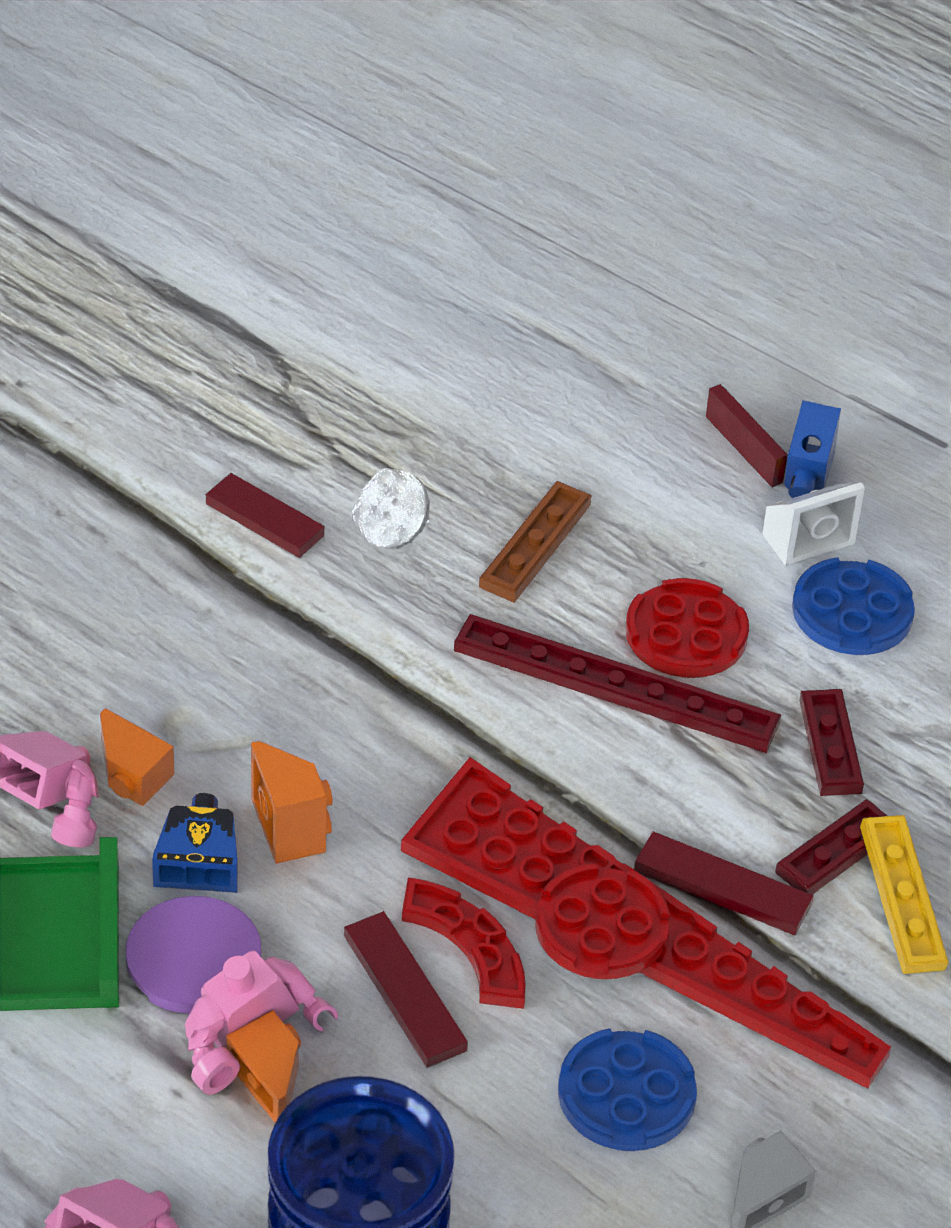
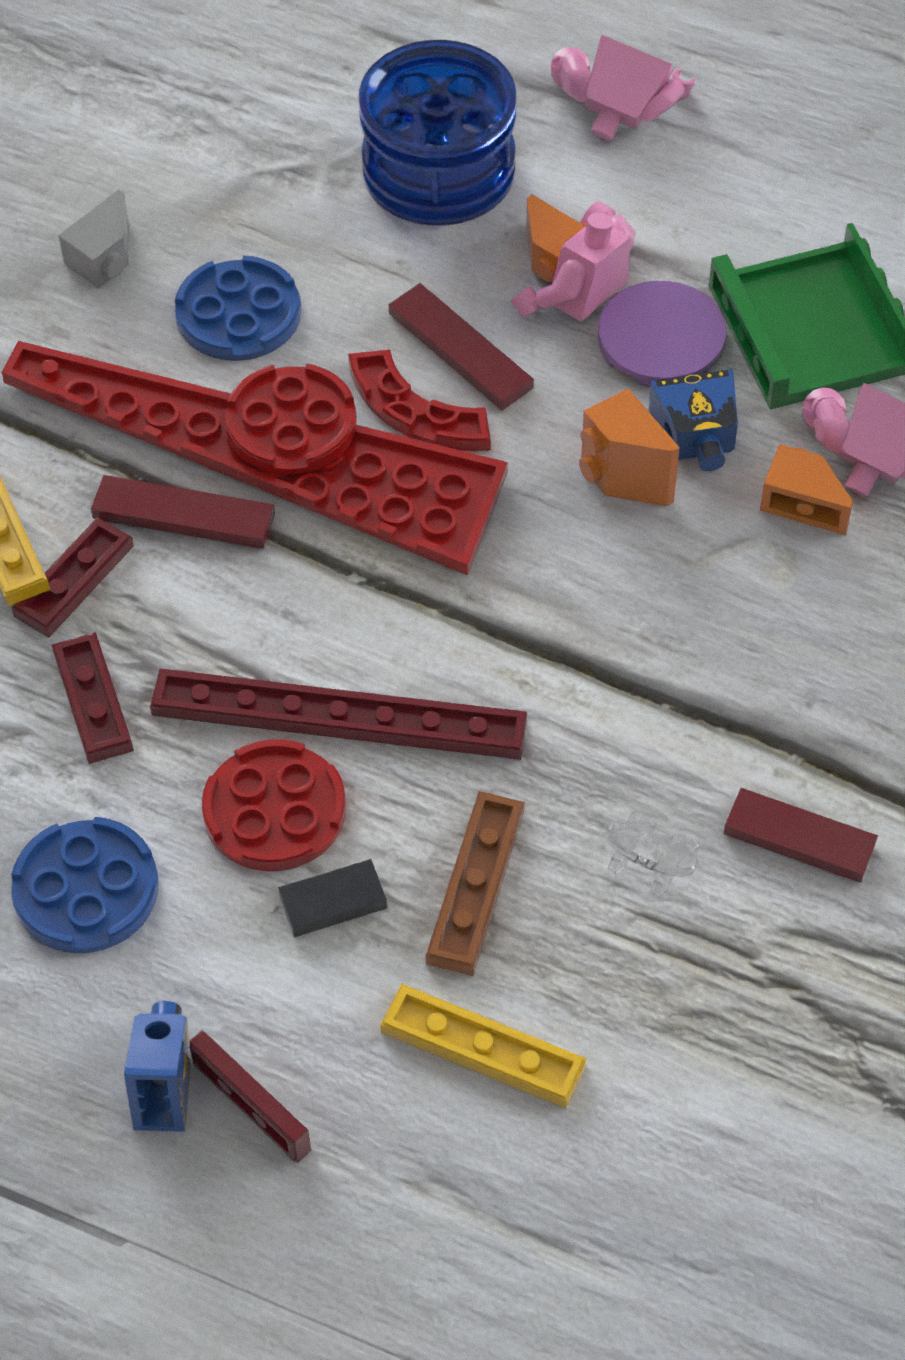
camera: 170 degrees right, 10 degrees up
(563, 442) = (483, 1045): none -> yellow tile
(653, 553) = (332, 898): none -> black tile
(814, 522) = (144, 957): white slope -> none

